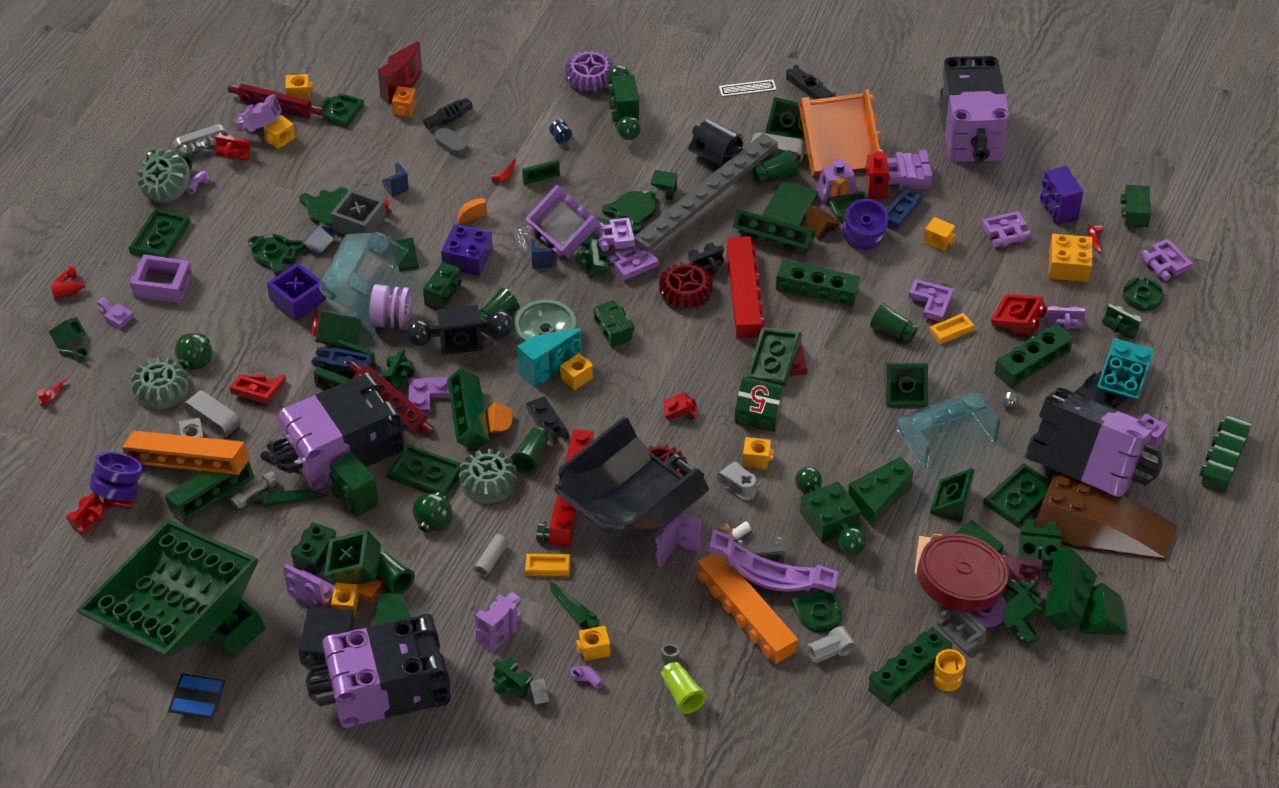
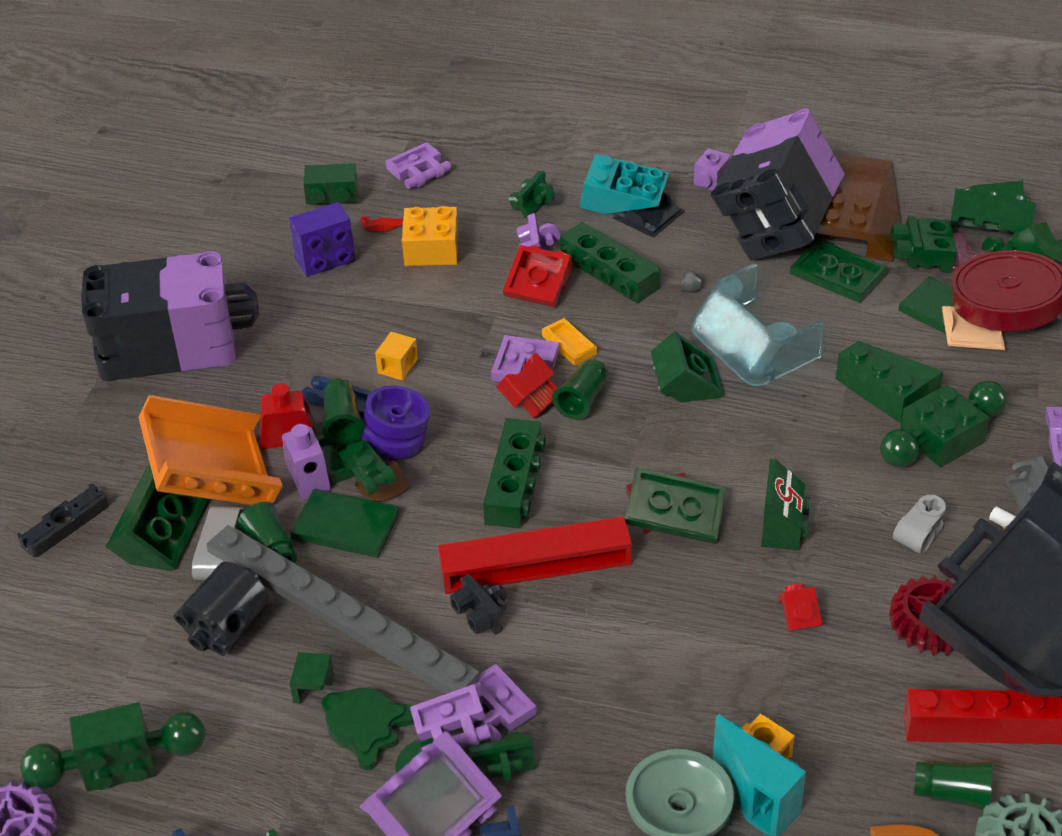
camera: 95 degrees left, 5 degrees down
(546, 418) = (872, 778): black hinge -> none
(613, 323) = (646, 709): dark green brick -> none
(685, 285) = (544, 625): dark red gear -> none
(747, 87) = (57, 603): sticker -> none
(757, 453) = (864, 510): light orange brick -> none
(772, 228) = (411, 525): dark green brick -> none
(821, 207) = (366, 466): none -> dark green plate
(884, 195) = (341, 415): none -> dark green plant
(897, 295) = (530, 386): none -> red piece
(910, 170) = (252, 384): medium lavender hips -> none
(953, 495) = (869, 314): dark green slope -> none
(1004, 224) = (370, 299): medium lavender plate -> none
(1142, 294) = (476, 185): dark green tile -> none
(1226, 452) = (720, 115): dark green brick -> none

